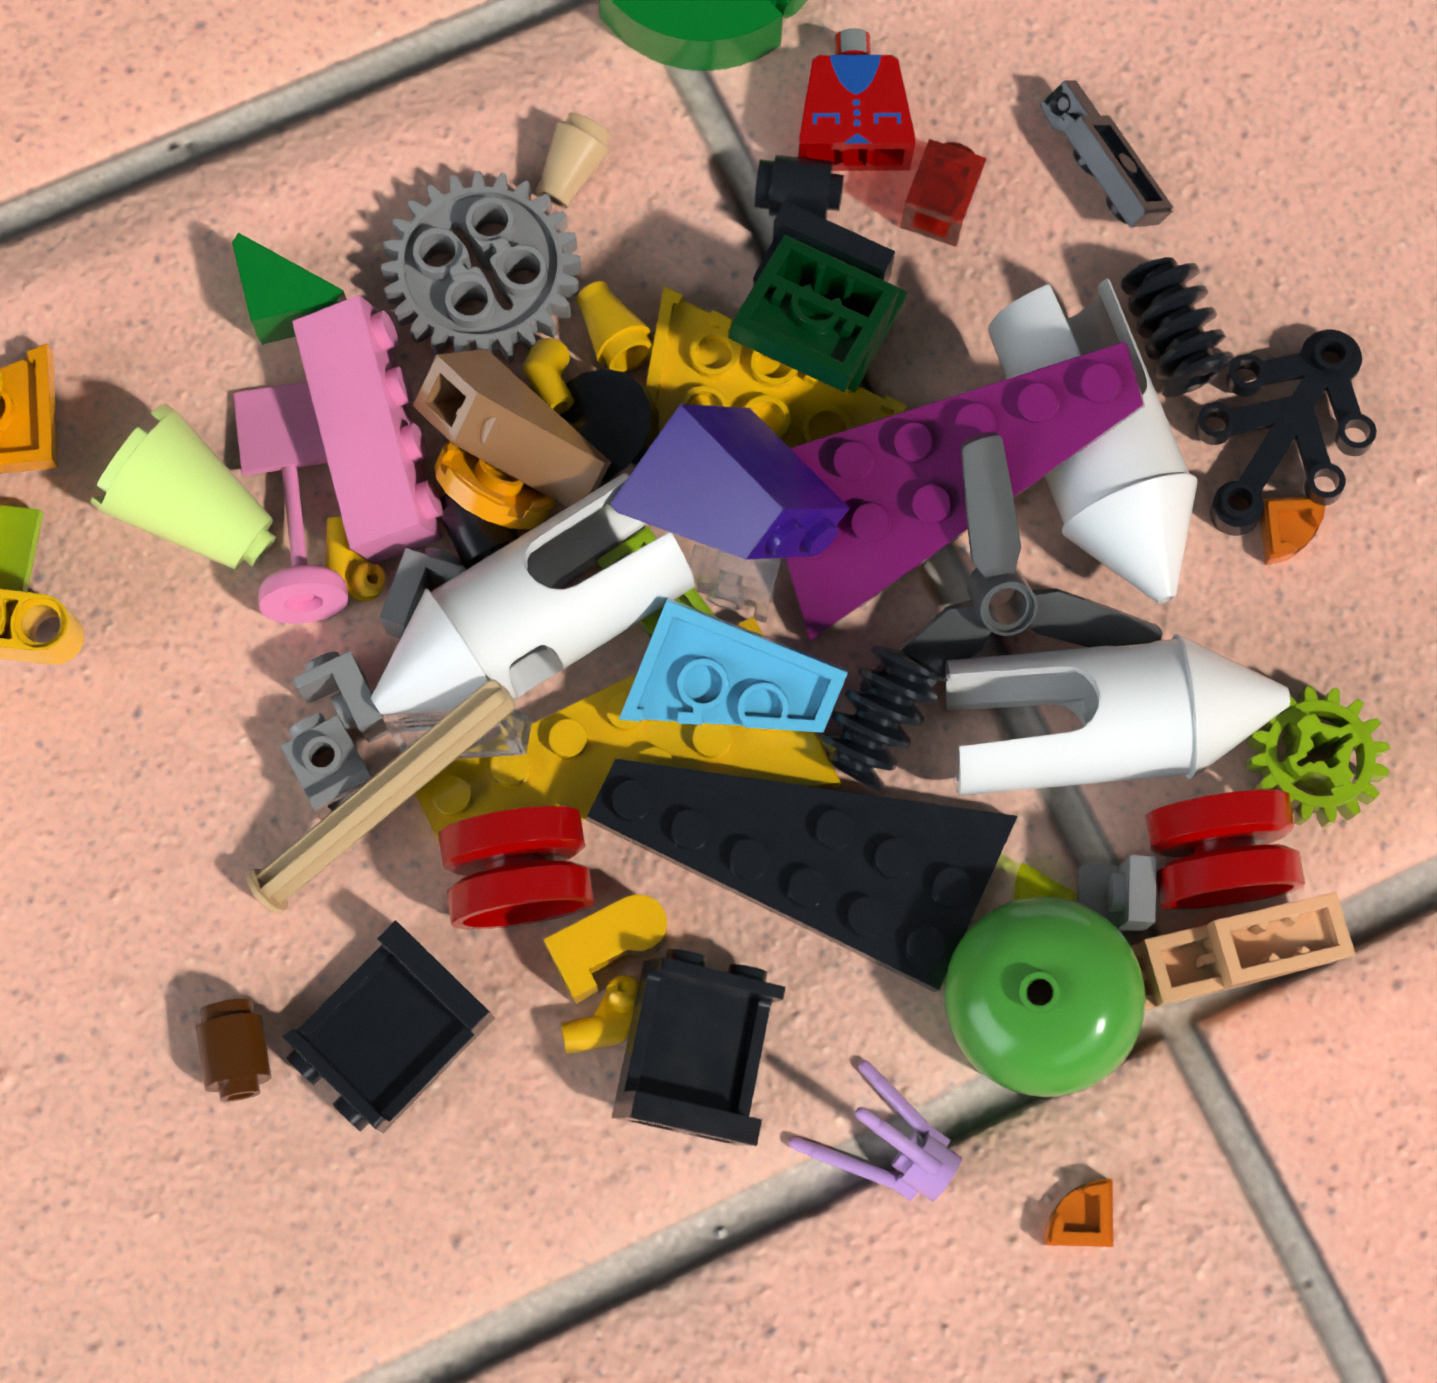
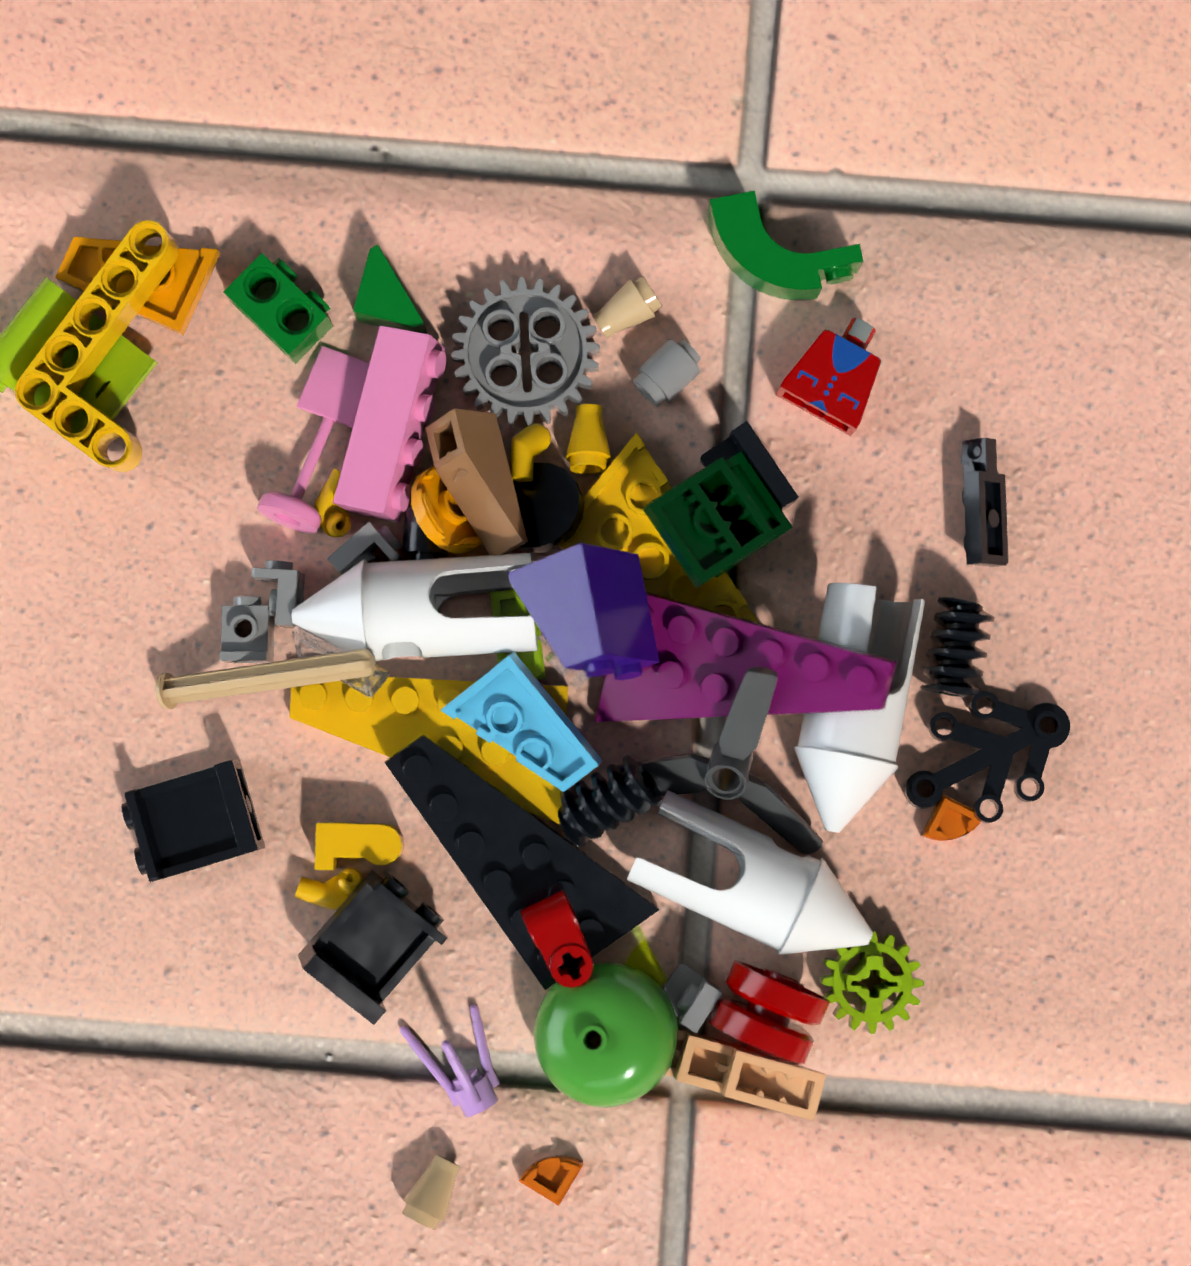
camera: 30 degrees right, 10 degrees up
(156, 375) = (273, 314): none -> green brick
(184, 494) = (250, 405): yellowish green cone -> none
(233, 1049) = (93, 779): reddish brown brick -> none
(515, 867) = (323, 769): red wheel -> none
(660, 203) = (667, 372): none -> light grey brick
(799, 181) = (765, 411): black brick -> none
(912, 898) = (558, 932): none -> red piece
(943, 191) = (860, 467): clear red brick -> none
(949, 1323) = (432, 1193): none -> tan cone

